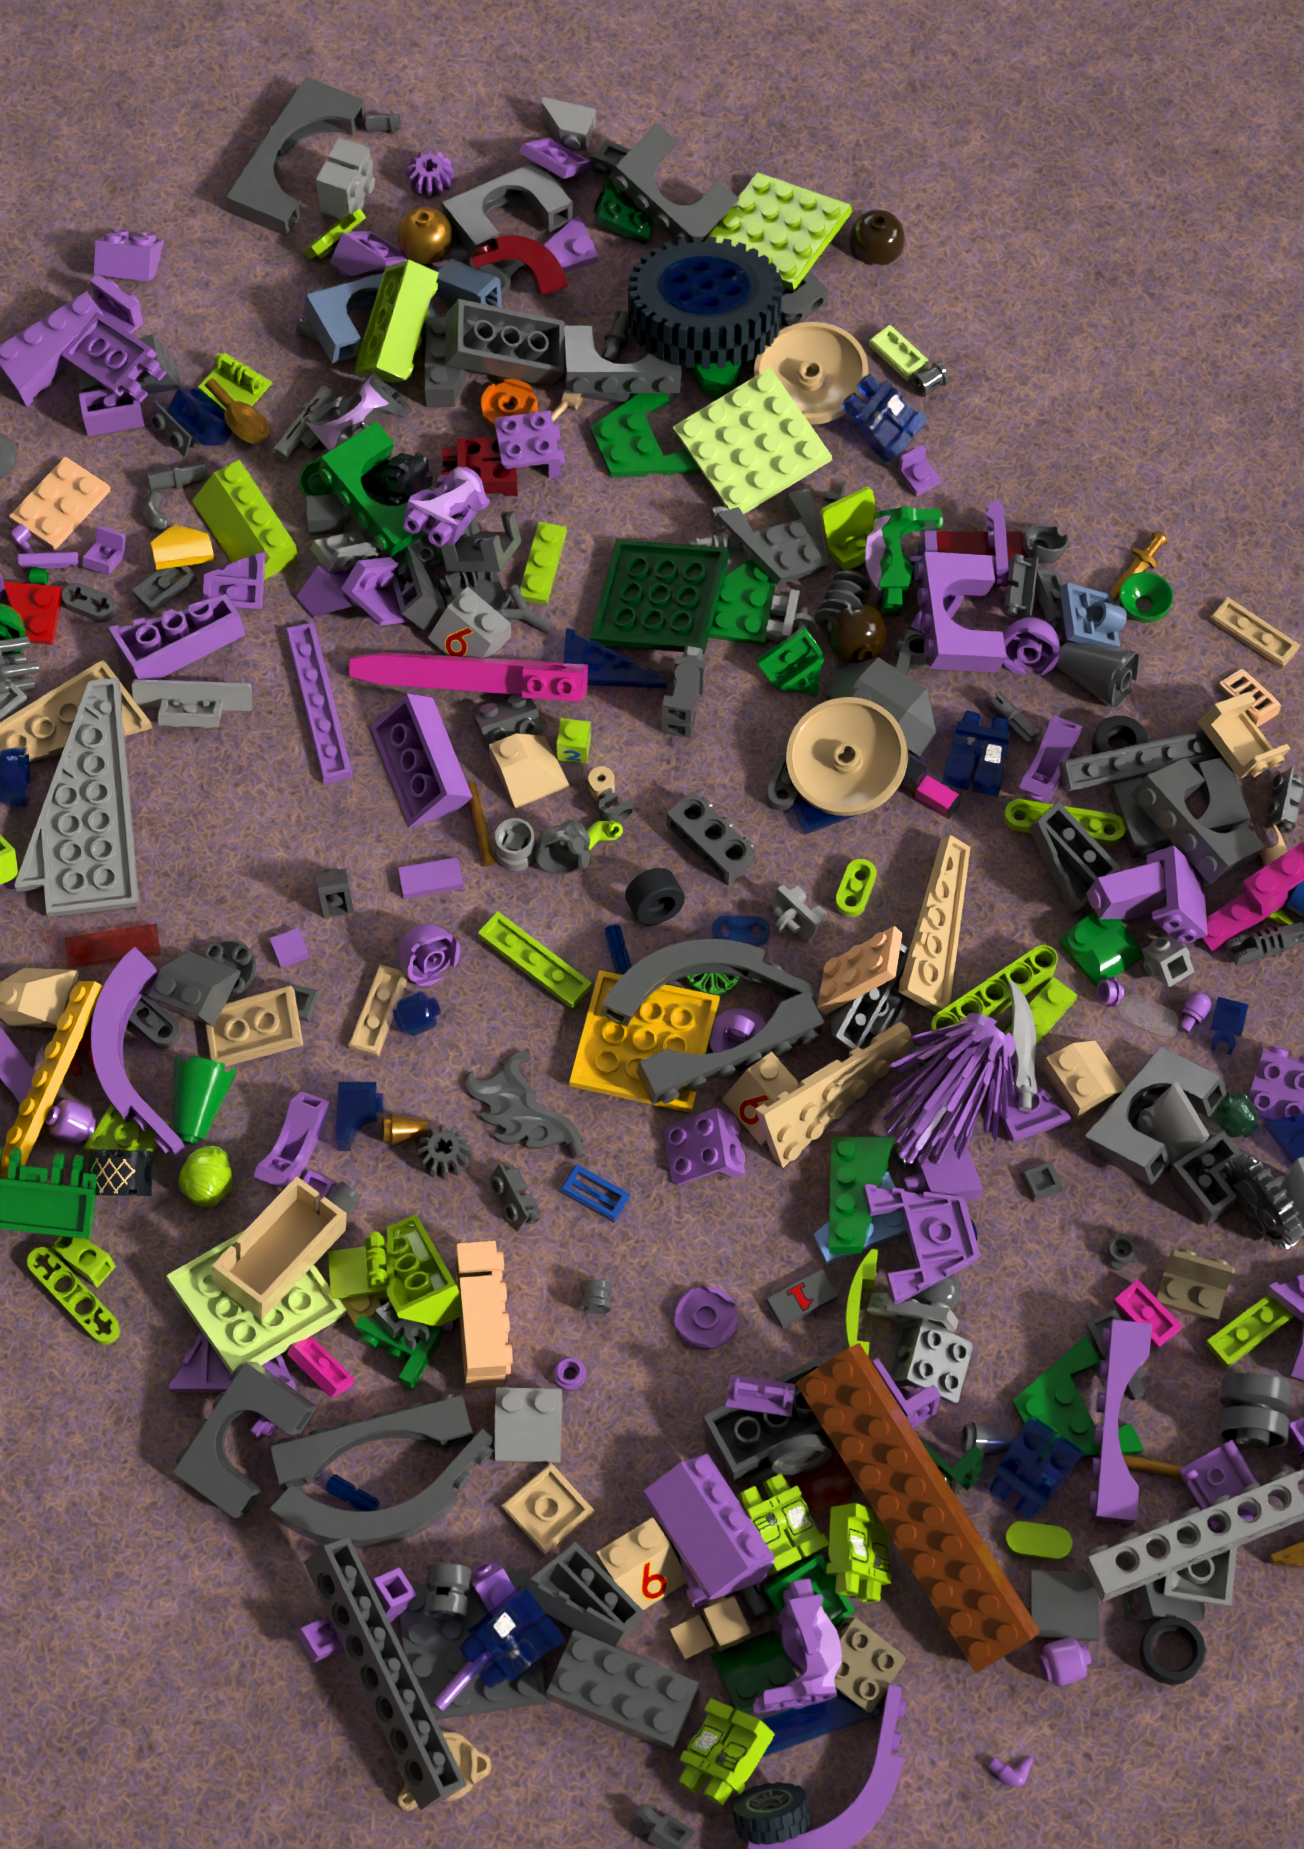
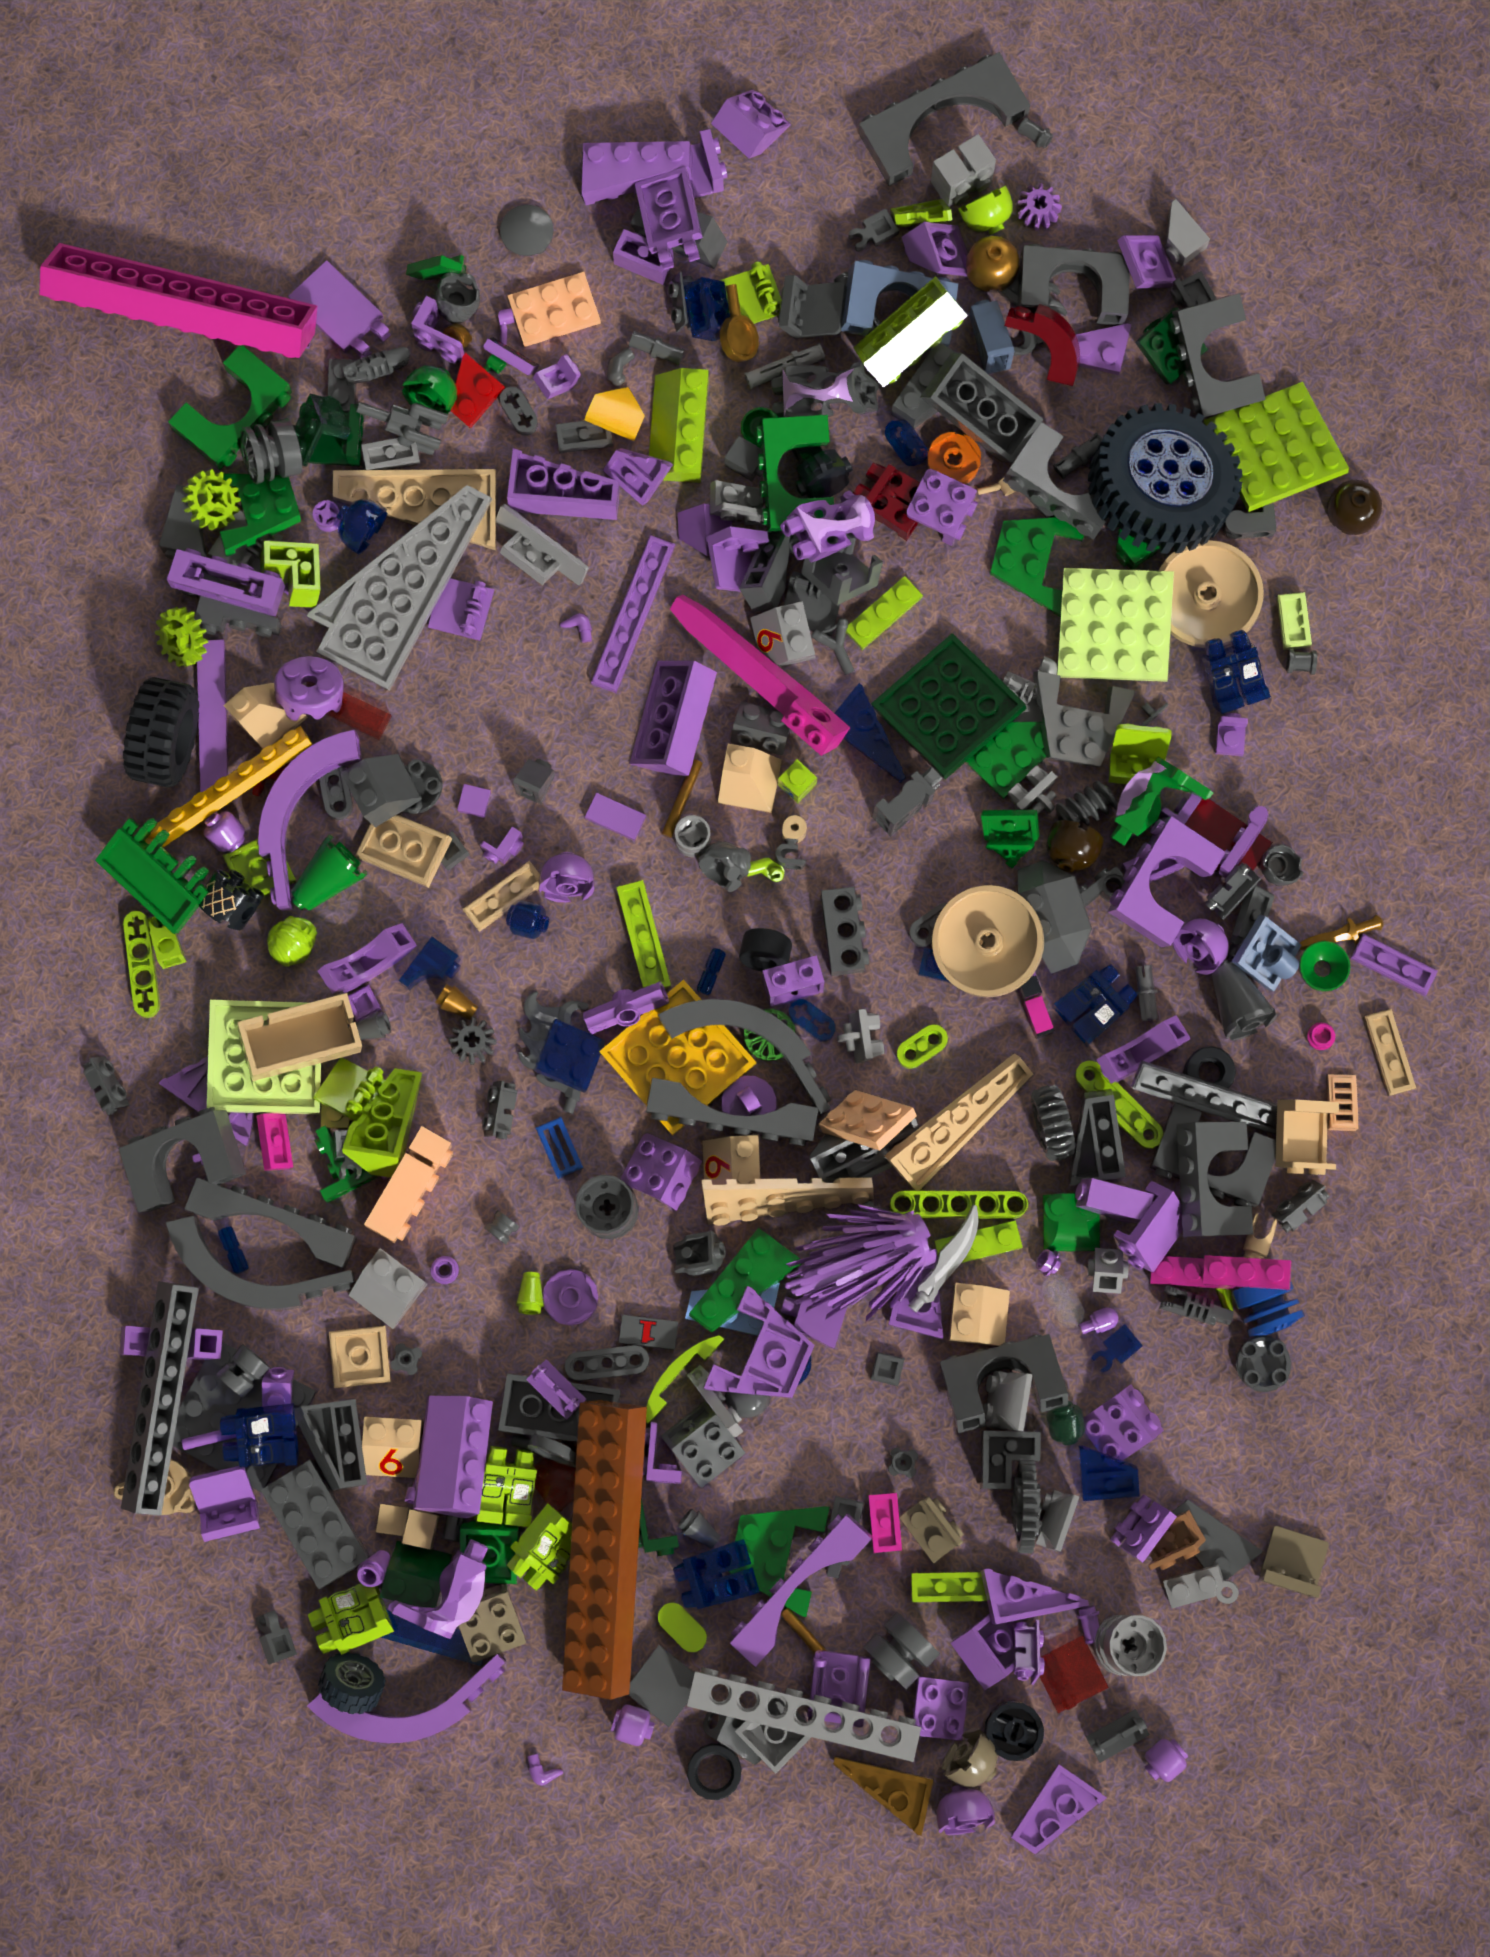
camera: 35 degrees right, 15 degrees up
(52, 954) = (313, 700): none -> medium lavender plate
(105, 1421) = (101, 1073): none -> dark grey hinge
(158, 794) = (462, 609): none -> medium lavender hinge
(280, 738) = (583, 626): none -> medium lavender animal
(295, 362) = (811, 308): none -> dark grey bracket
(302, 271) = (877, 229): none -> dark grey plate
(348, 975) = (510, 845): none -> medium lavender bracket
(390, 199) = (988, 211): none -> lime cylinder
(459, 411) = (906, 442): none -> clear blue beam
(518, 1732) = (225, 1503): none -> medium lavender bracket
(544, 1103) = (569, 1055): none -> clear blue plate
(565, 1026) = (626, 1007): none -> medium lavender piece
(589, 1487) = (403, 1351): none -> dark grey plate
(668, 1340) = (530, 1294): none -> lime cone
(686, 1191) = (594, 1197): none -> dark grey wheel
(703, 894) = (798, 976): none -> medium lavender window
(712, 1688) = (373, 1570): none -> medium lavender cone
(791, 1338) = (593, 1363): none -> dark grey plate
(795, 1195) = (699, 1254): none -> dark grey hand
(1022, 869) = (1053, 1123): none -> dark grey gear
(1188, 656) = (1321, 1036): none -> dark pink plate
(1200, 562) = (1394, 964): none -> medium lavender tile

